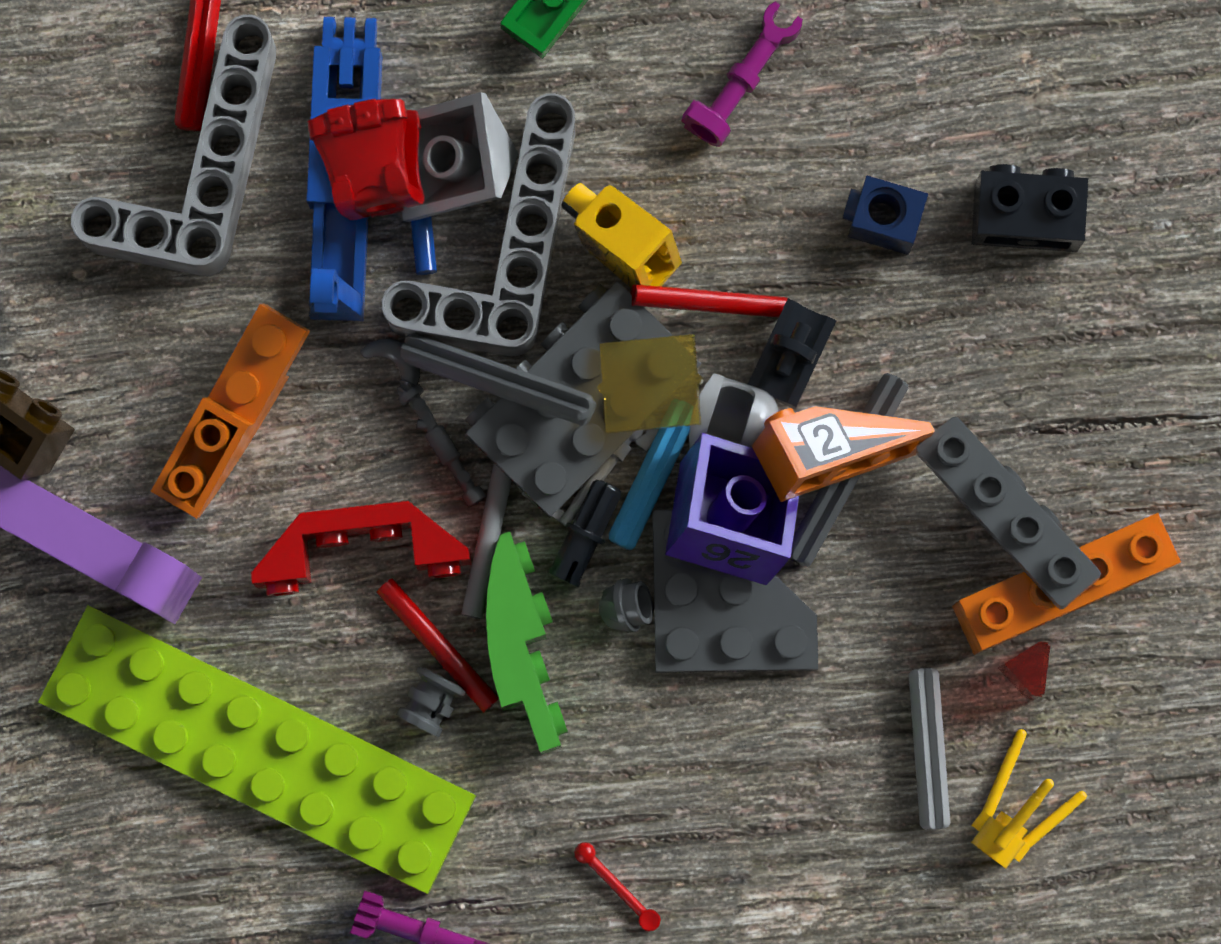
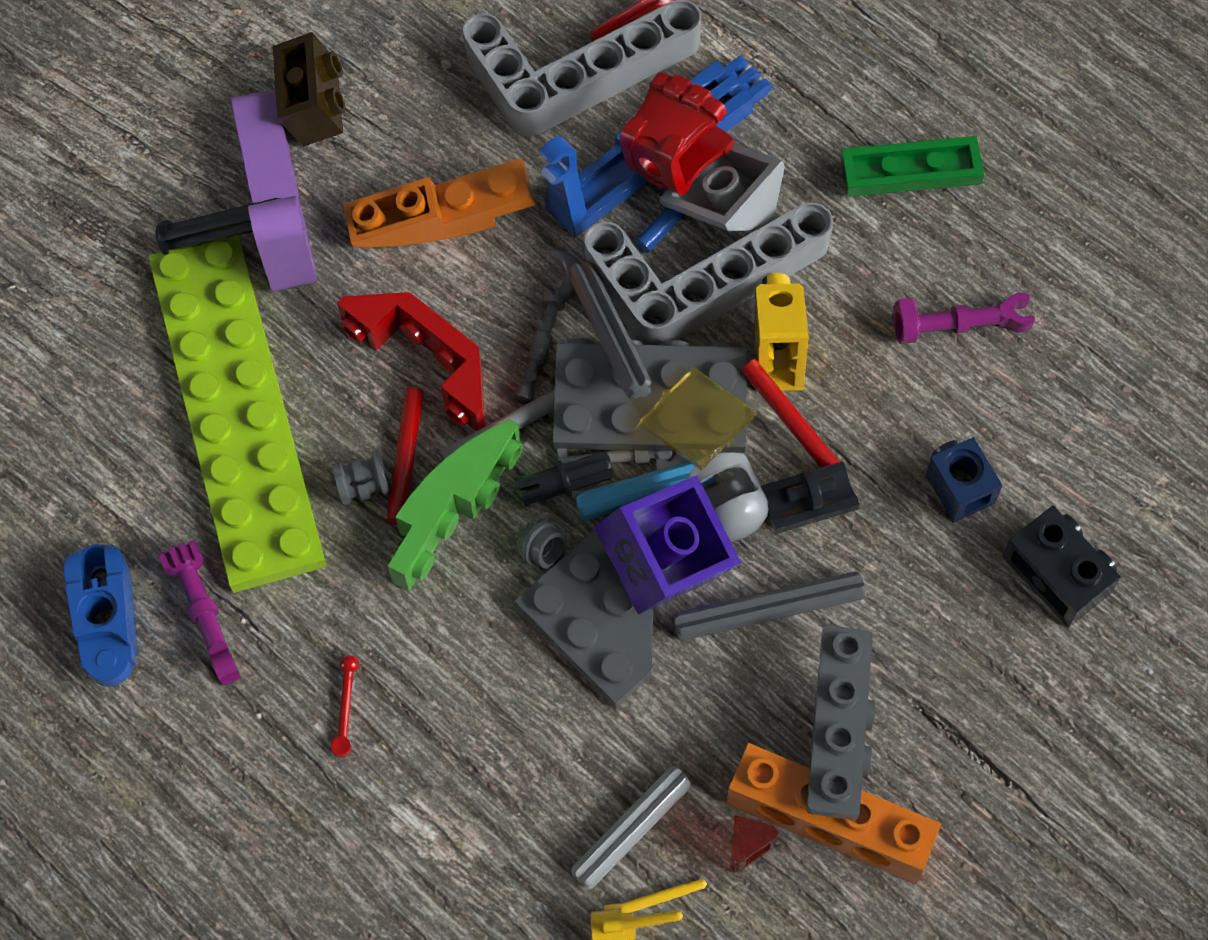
camera: 50 degrees right, 15 degrees down
(75, 619) = (204, 228): none -> black axle
(831, 445) = (770, 566): orange slope -> none

